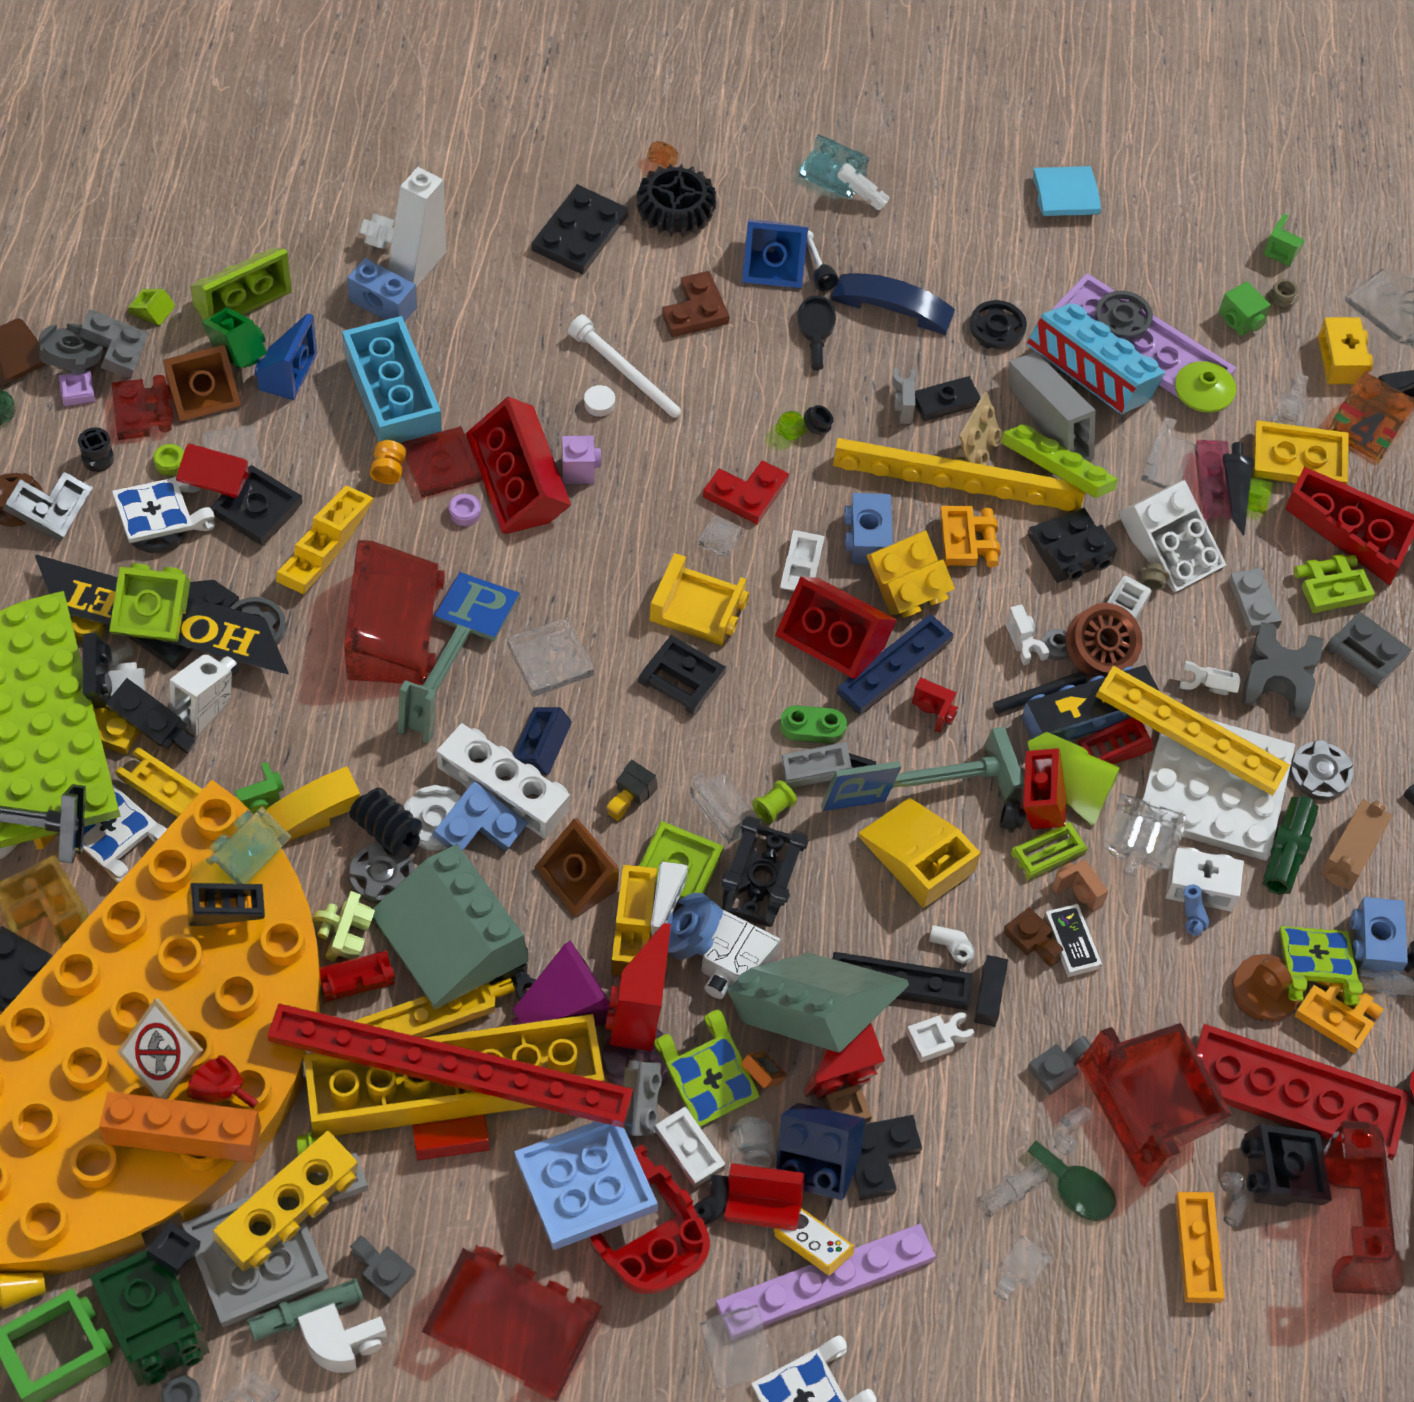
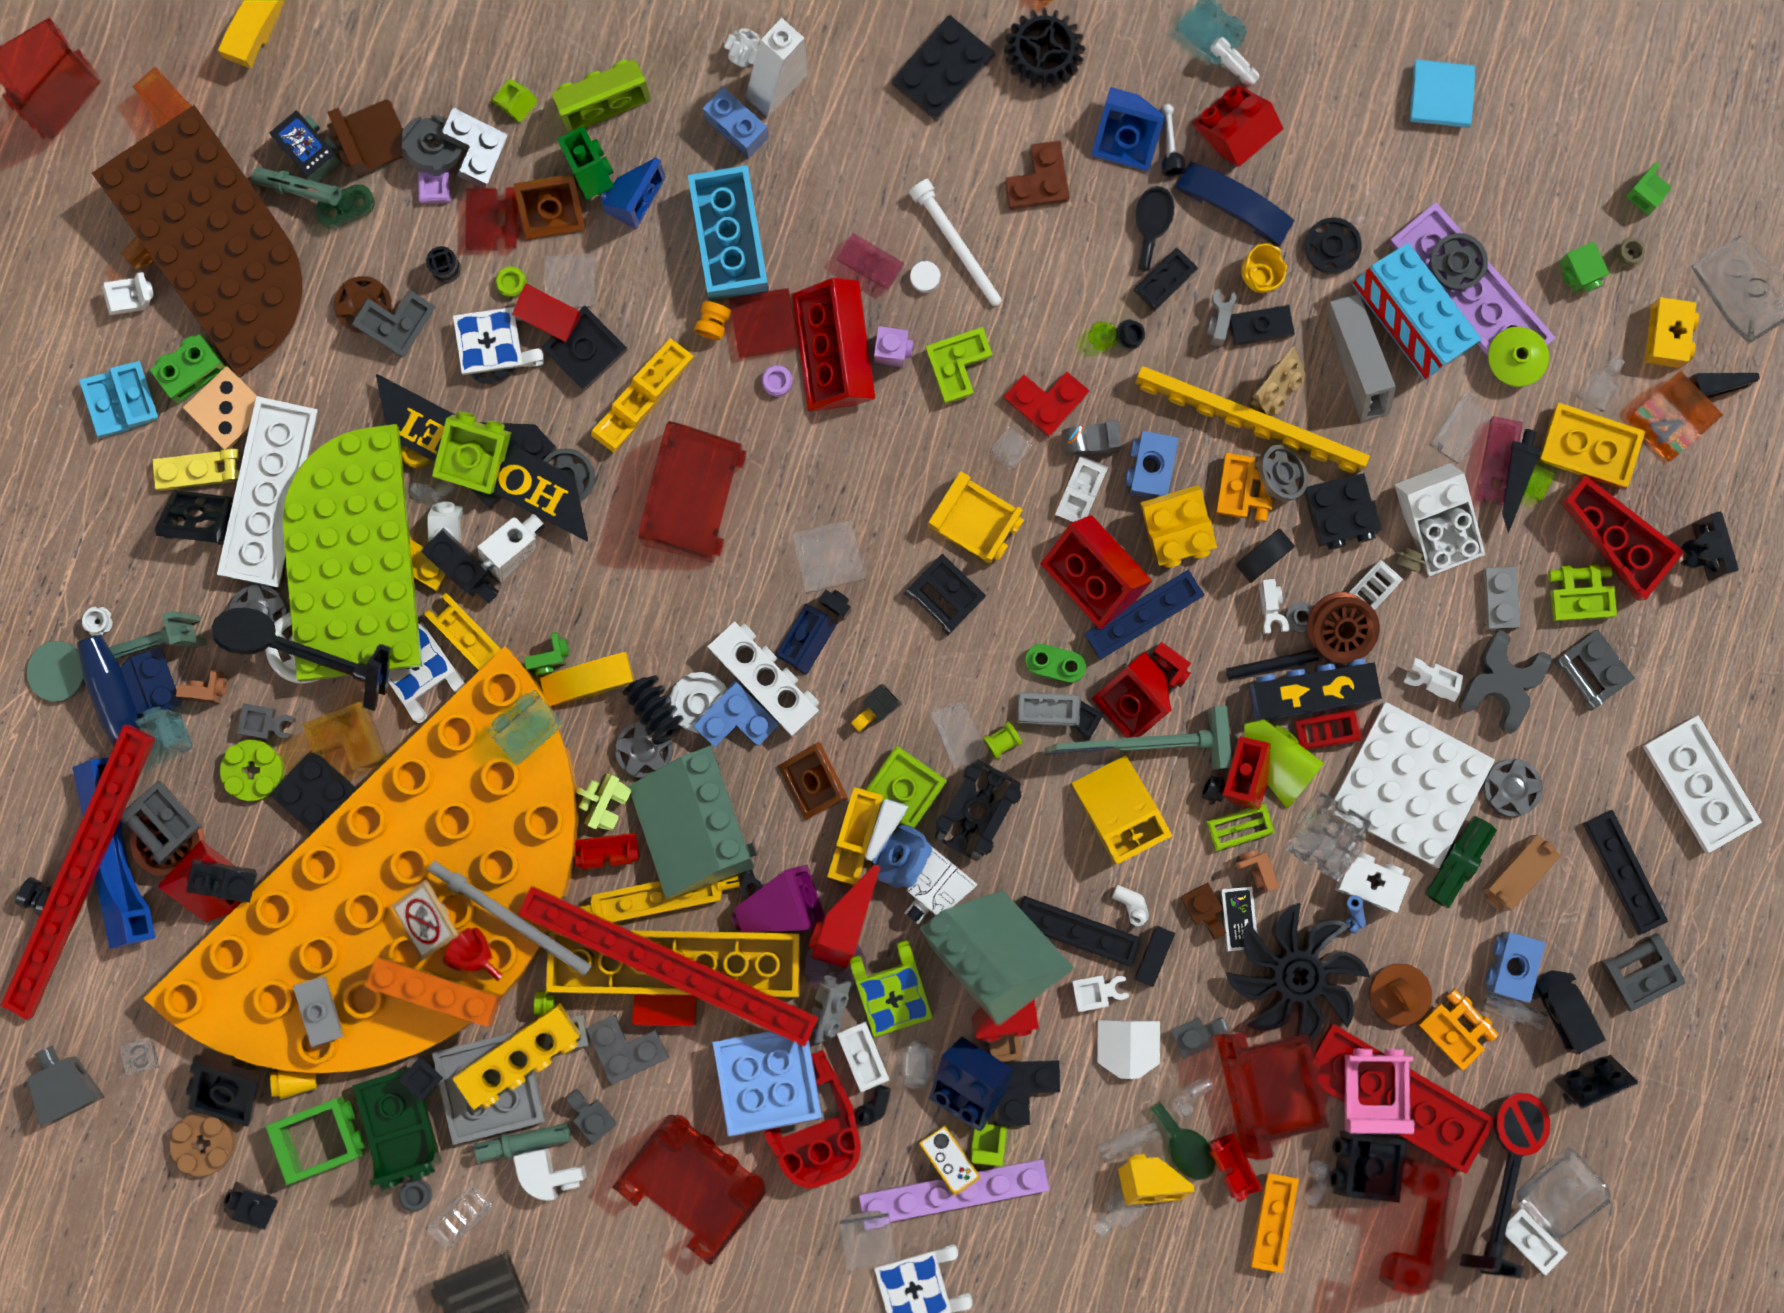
camera: 15 degrees right, 25 degrees up
(43, 1177) = (318, 1011): none -> light grey plate
(95, 670) = (416, 507): black plate -> none
(193, 1013) = (457, 883): none -> light grey bar
(225, 914) = (471, 781): black slope -> none
(408, 1197) = (624, 1058): none -> flat silver plate
(471, 608) = (768, 493): sand green piece -> none
(541, 392) = (870, 261): none -> clear pink plate
(567, 697) = (836, 603): none -> black plate
(642, 465) = (949, 362): none -> lime plate
(764, 1069) = (940, 998): orange tile -> none
(764, 1197) = (915, 1117): red panel -> none
(803, 514) = (1092, 439): none -> flat silver leg
(841, 370) = (1165, 279): none -> black plate
(856, 1218) = (989, 1145): none -> lime panel
(880, 235) = (1238, 124): none -> red slope
(905, 734) = (1135, 697): none -> red slope
(935, 346) = (1263, 268): none -> yellow hair
(985, 1087) = (1128, 1047): none -> white slope
(1003, 514) = (1280, 473): none -> flat silver wheel
(1006, 586) = (1265, 555): none -> black tyre
(1052, 1222) = (1151, 1181): none -> yellow slope
(1059, 460) = (1351, 423): lime plate -> none
(1138, 964) = (1313, 974): none -> black piece
(1139, 1192) = (1232, 1159): none -> red hinge
(1193, 730) = (1399, 741): yellow plate -> none
(1280, 1111) = (1378, 1118): none -> bright pink window
(1319, 957) = (1453, 976): lime flag -> none

